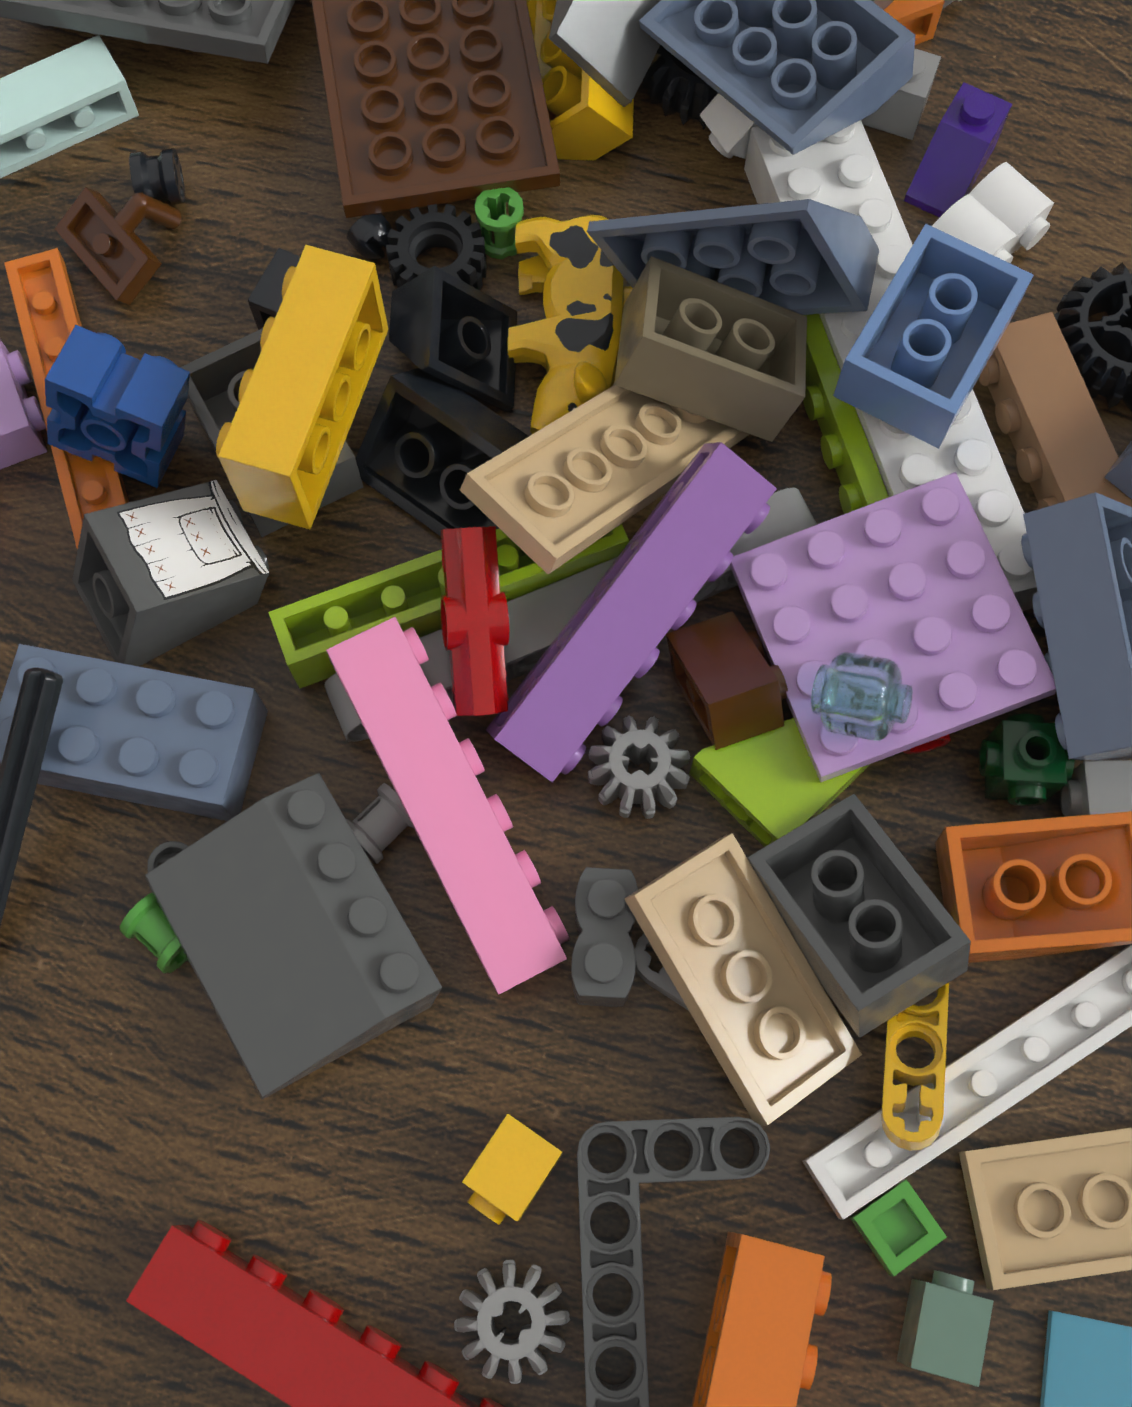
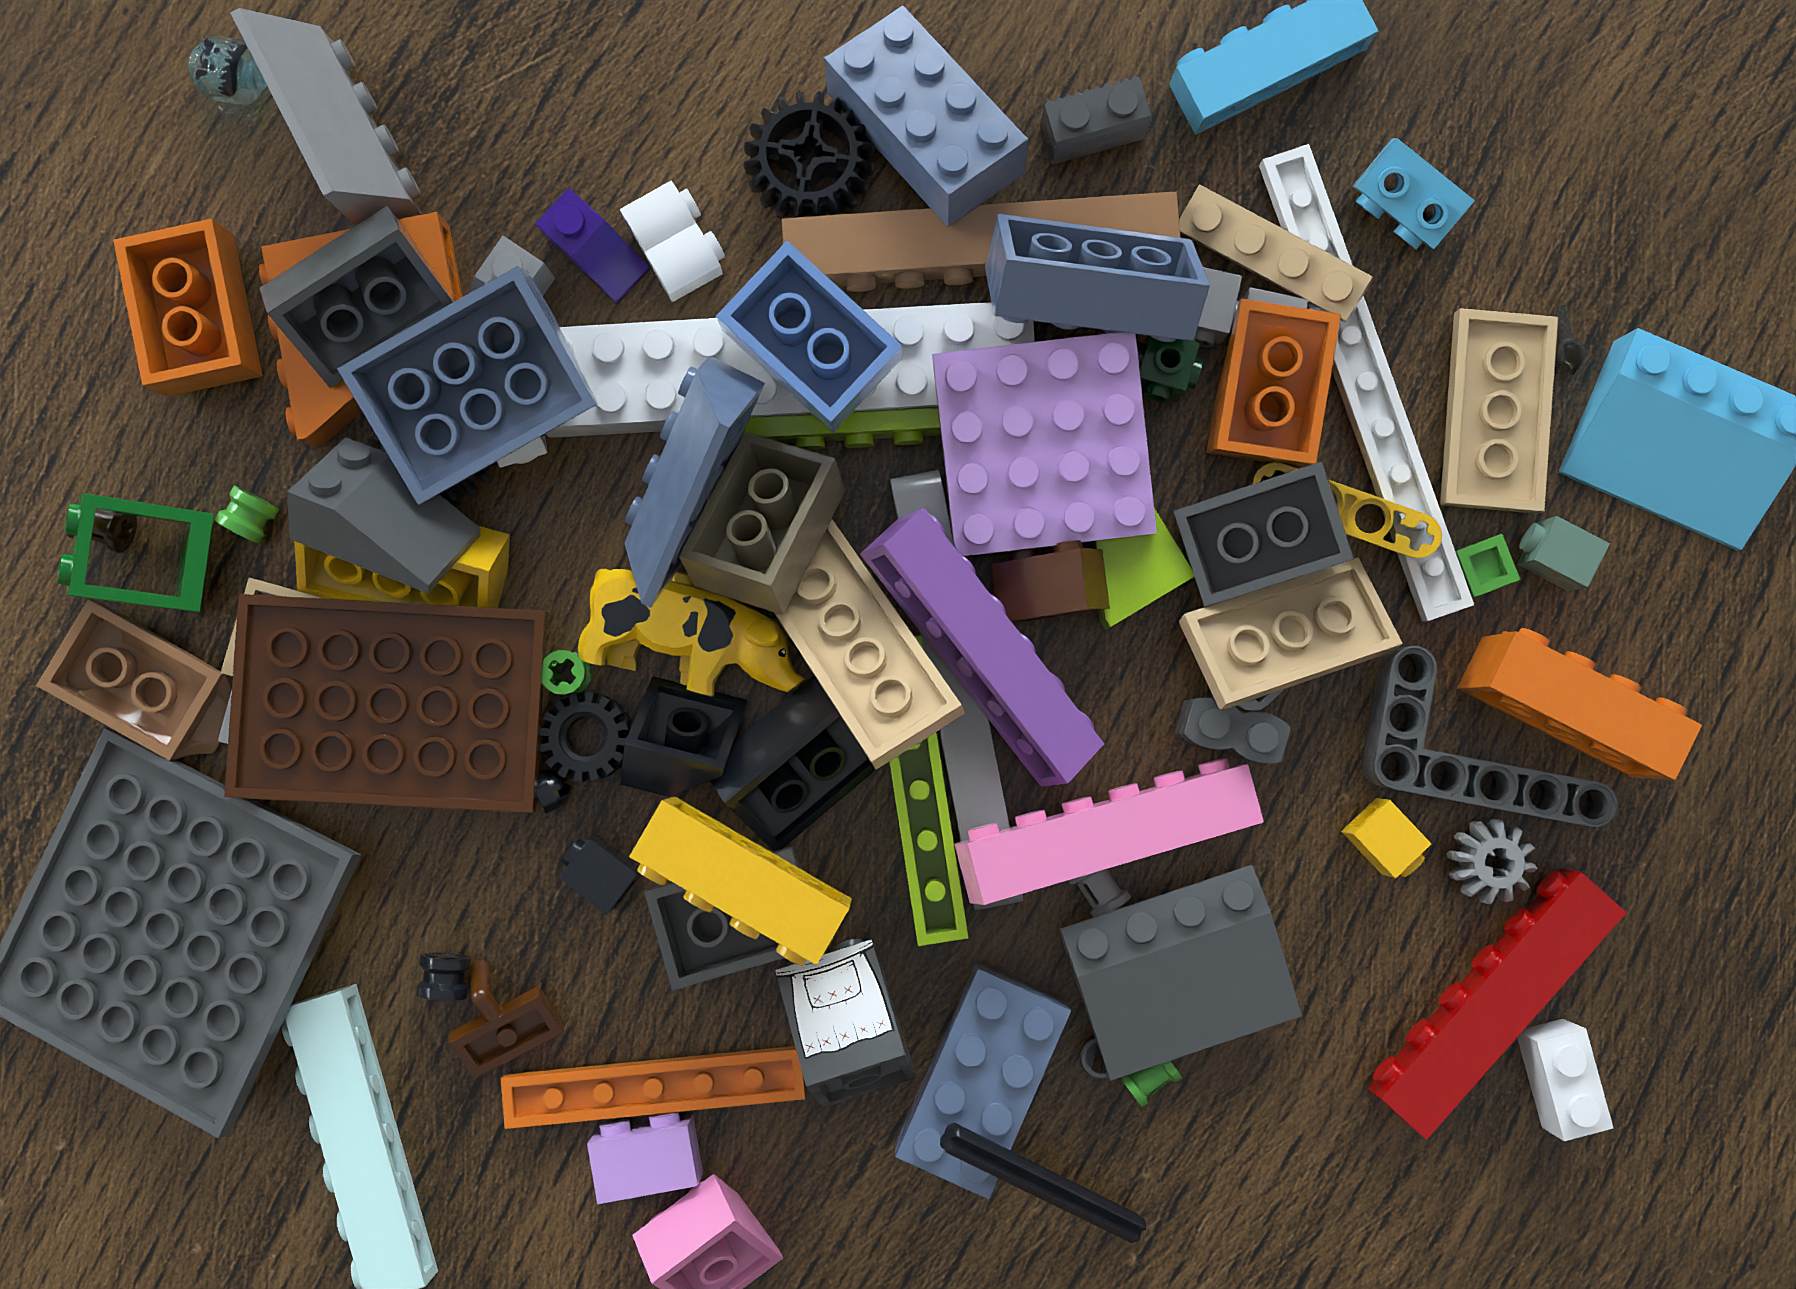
camera: 80 degrees left, 15 degrees up
(116, 405) = (699, 1042): blue brick -> none
(474, 620) = (969, 778): red piece -> none
(639, 787) = (1116, 676): light grey gear -> none
(861, 696) = (1115, 489): clear light blue head -> none

